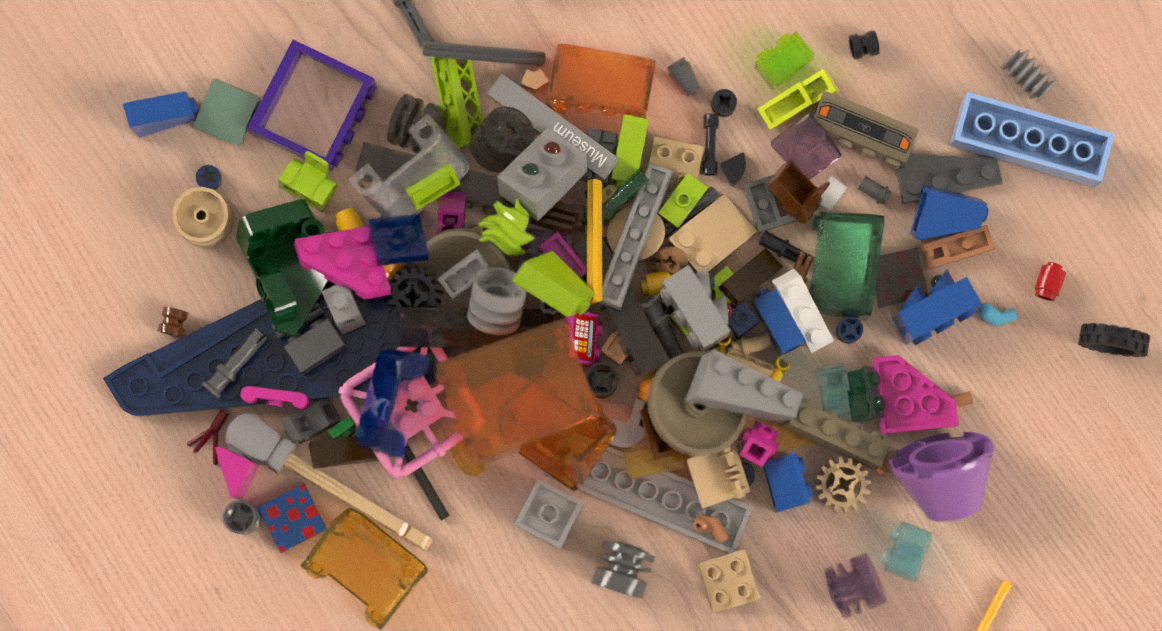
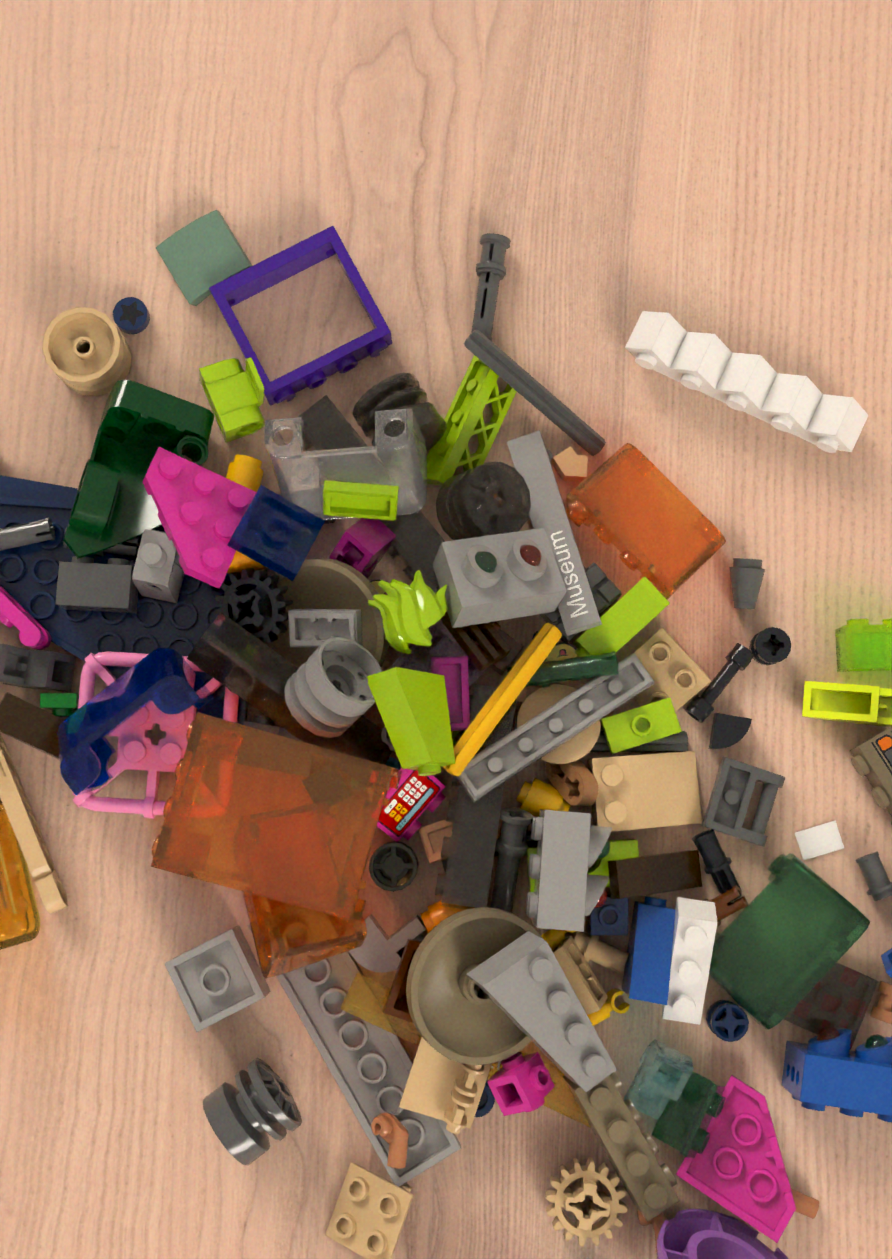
camera: 40 degrees right, 0 degrees up
(160, 113) = (125, 203): blue slope -> none
(427, 486) = (109, 833): pearl dark grey bar -> none
(787, 482) = (521, 1154): blue slope -> none
(796, 192) = (783, 812): reddish brown piece -> none
(807, 146) = (830, 769): slope -> none

